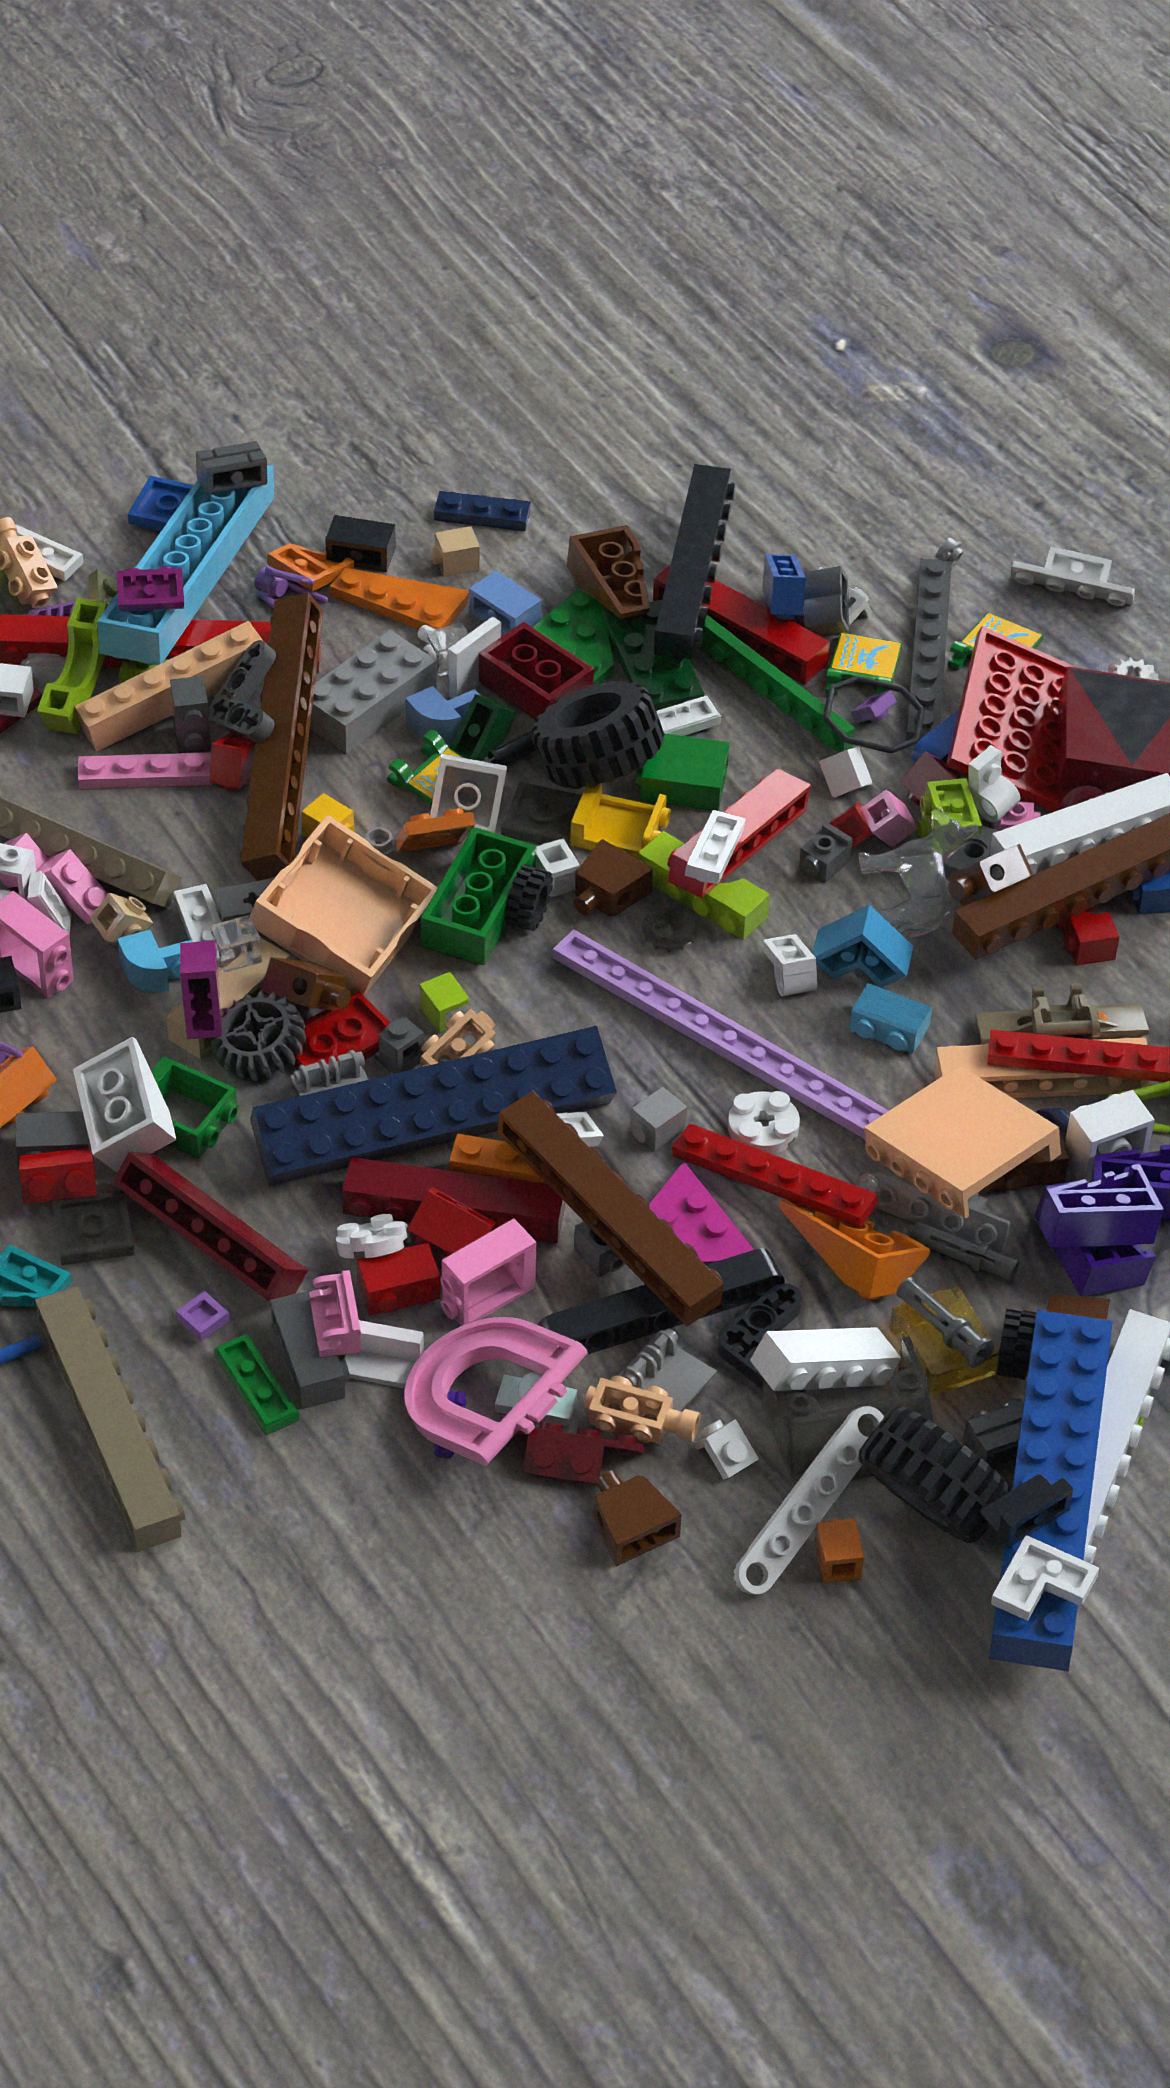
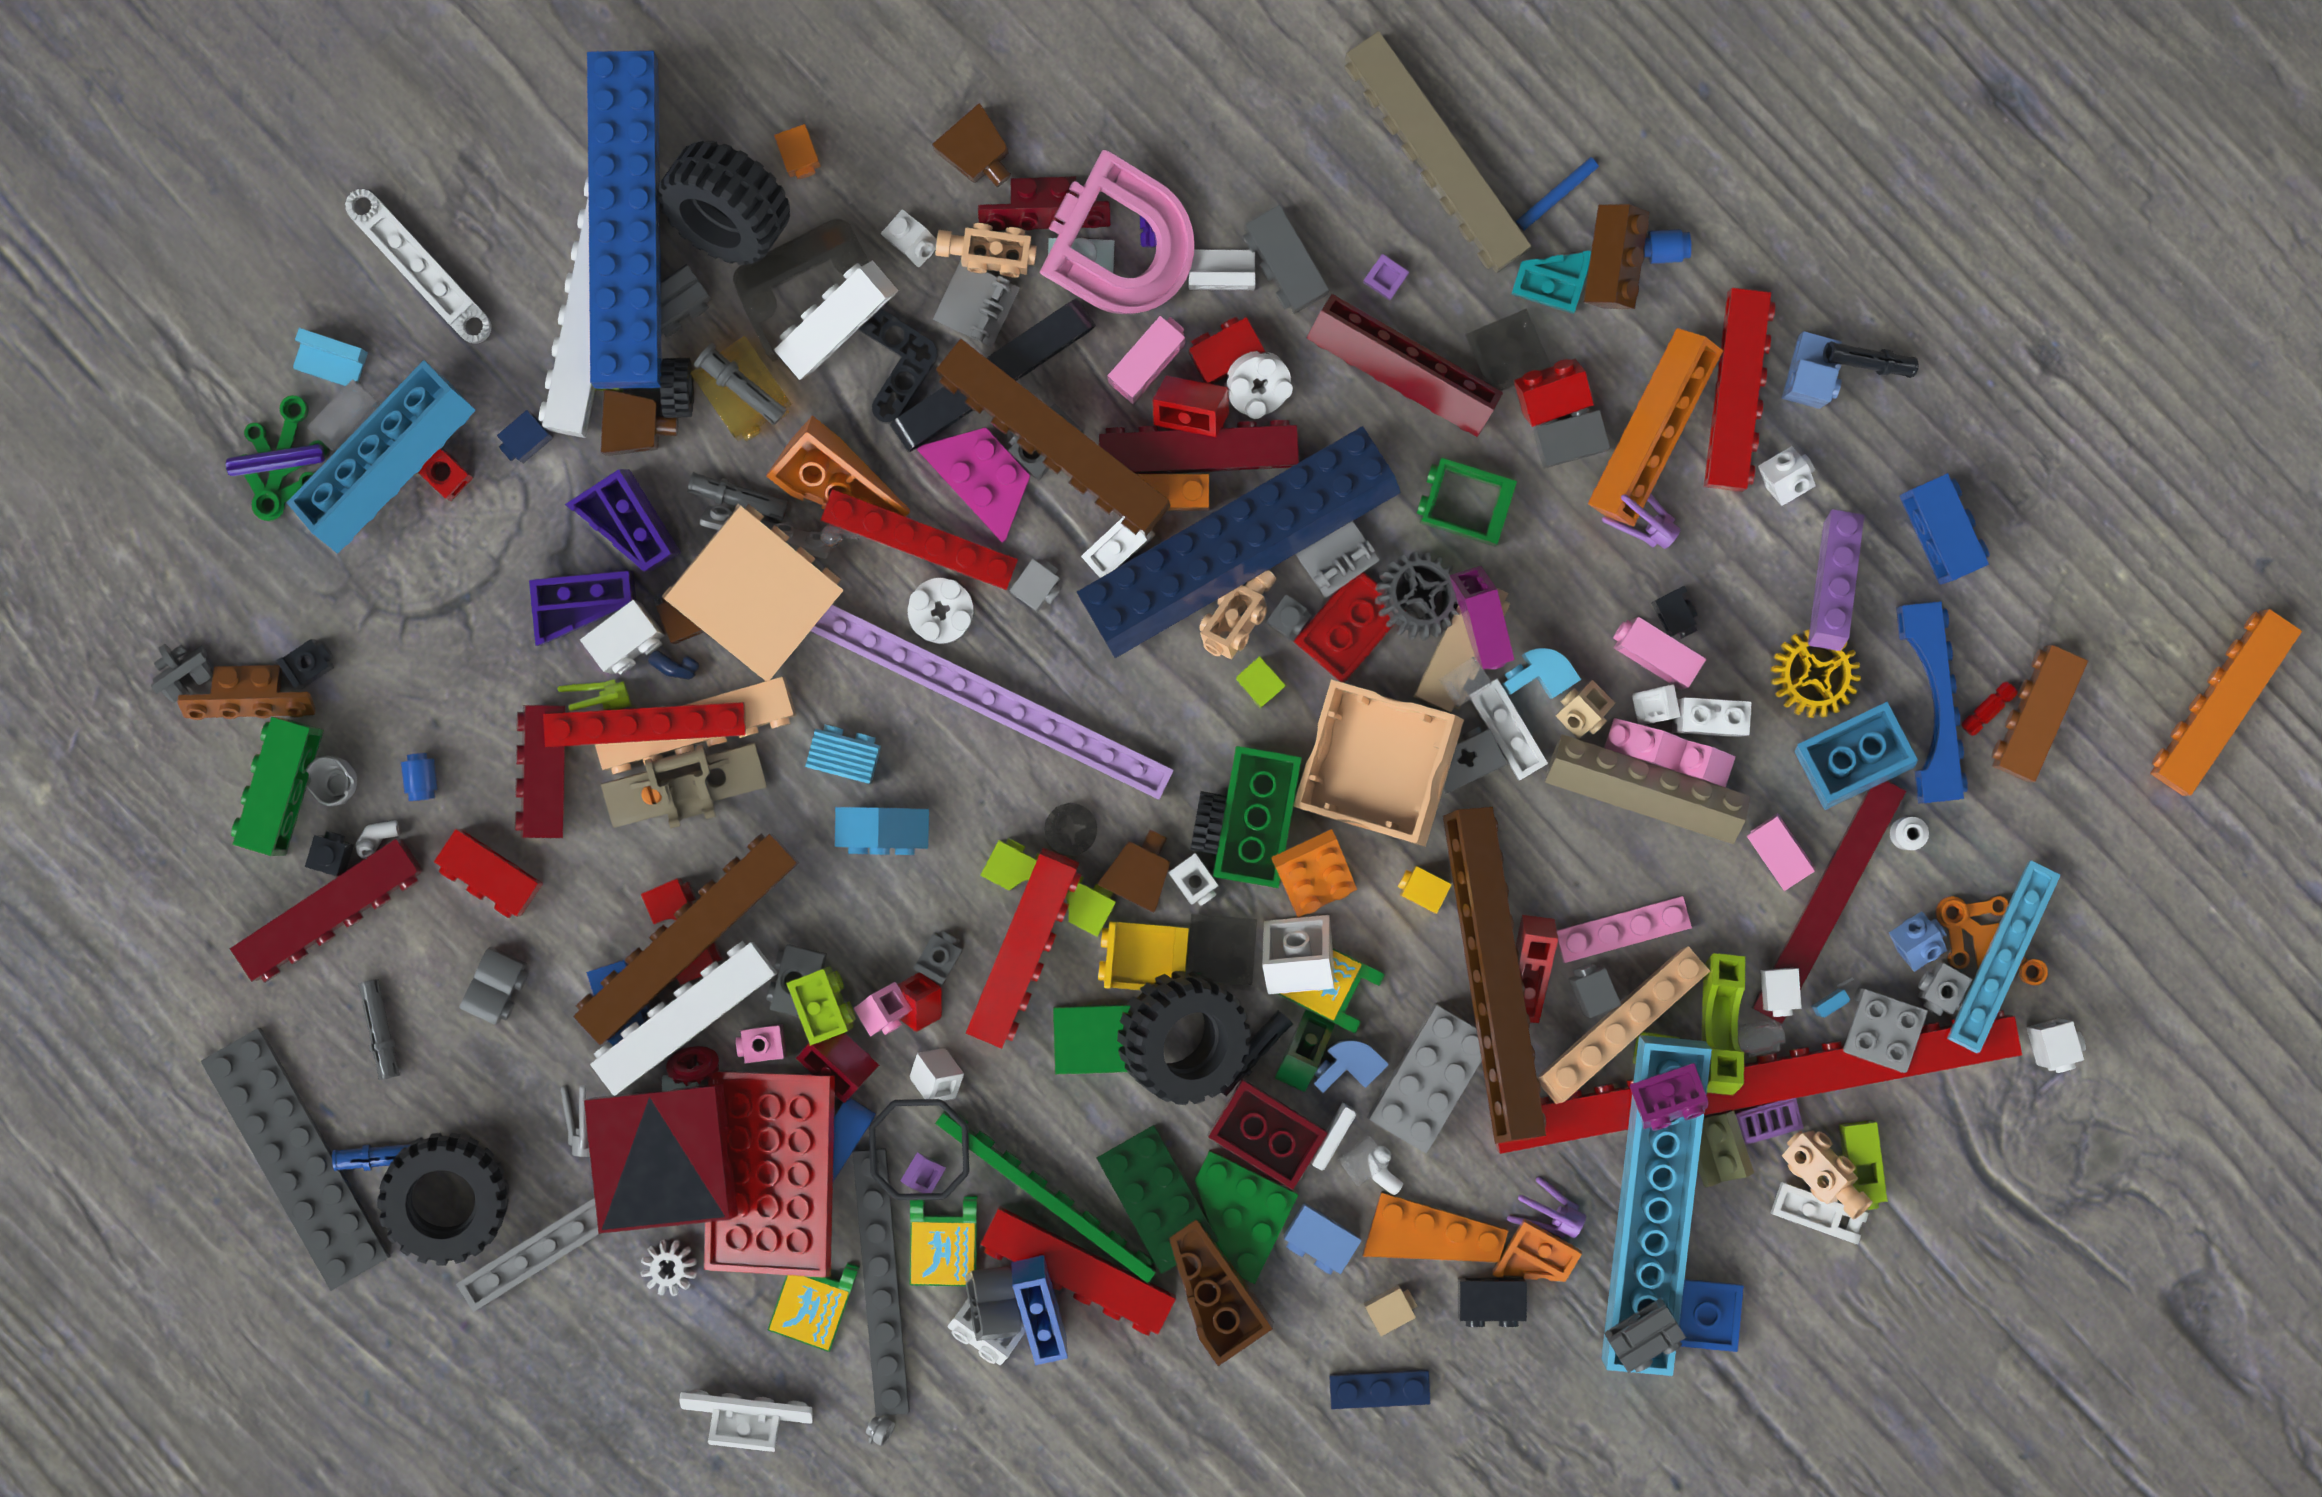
camera: 175 degrees right, 40 degrees up
(122, 1105) = (1515, 465): white slope -> none
(238, 691) = (1551, 1004): dark grey beam -> none
(256, 1384) = (1322, 222): green tile -> none
(319, 989) = (1387, 656): reddish brown torso -> none
(335, 1315) = (1266, 273): bright pink hinge -> none
(381, 840) = (1379, 882): light grey plate -> none
(689, 717) = (1109, 1117): white plate -> none
(693, 562) = (1137, 1320): black brick -> none
(715, 847) = (1035, 879): white plate -> none
(792, 963) = (948, 806): white plate -> none
(806, 1504) = (827, 182): white plate -> none
(923, 873) = (835, 920): clear animal -> none
(976, 882) = (772, 919): reddish brown torso -> none
(990, 790) = (781, 1040): white plate -> none
(1027, 1508) = (639, 162): black panel -> none
(1038, 1569) = (619, 102): white plate -> none
(1102, 1212) = (612, 516): dark purple wedge -> none

